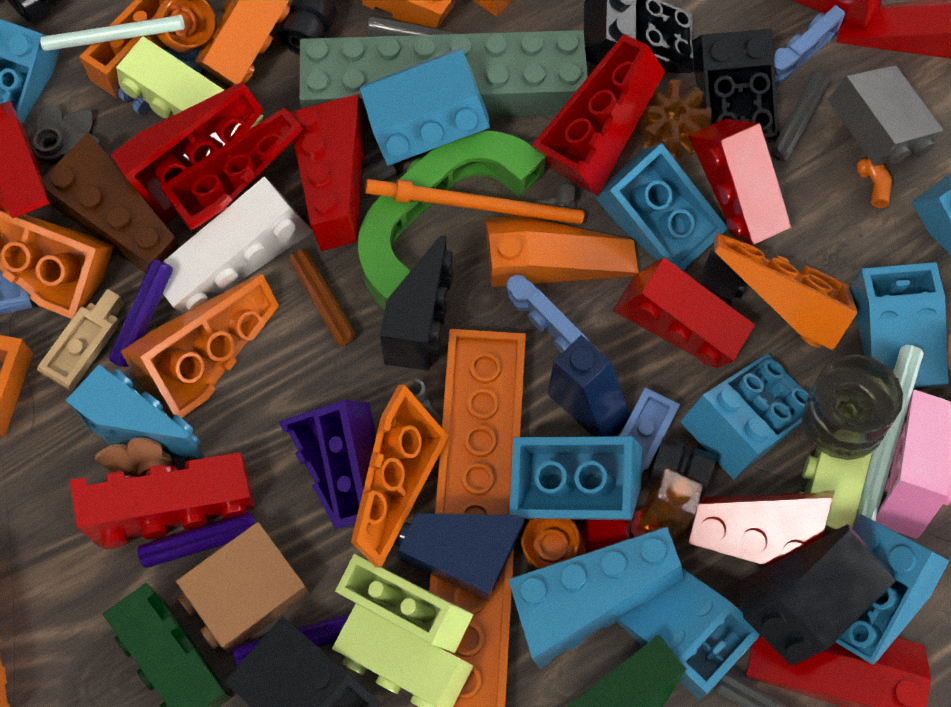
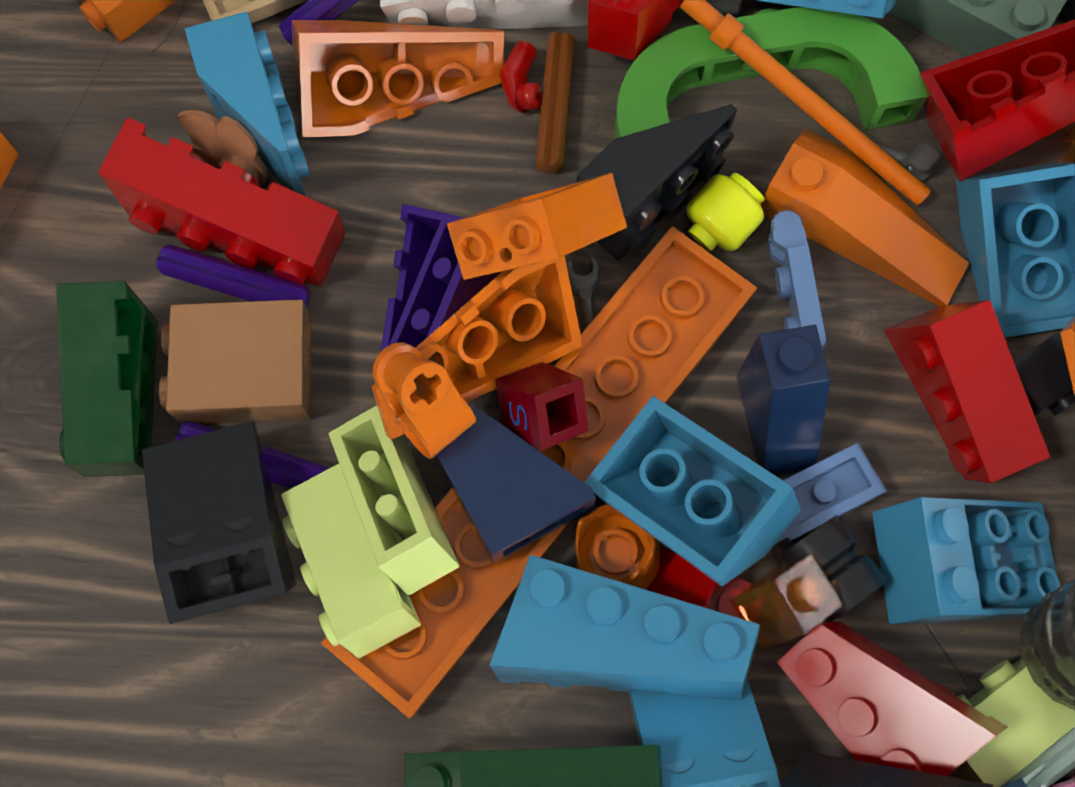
camera: 35 degrees right, 5 degrees up
(284, 297) = (519, 93): none -> red arm
(382, 379) = (537, 227): none -> orange window
(387, 529) = (422, 398): none -> orange piece
(454, 485) = (542, 405): none -> dark red brick
(474, 300) = (725, 212): none -> neon yellow head

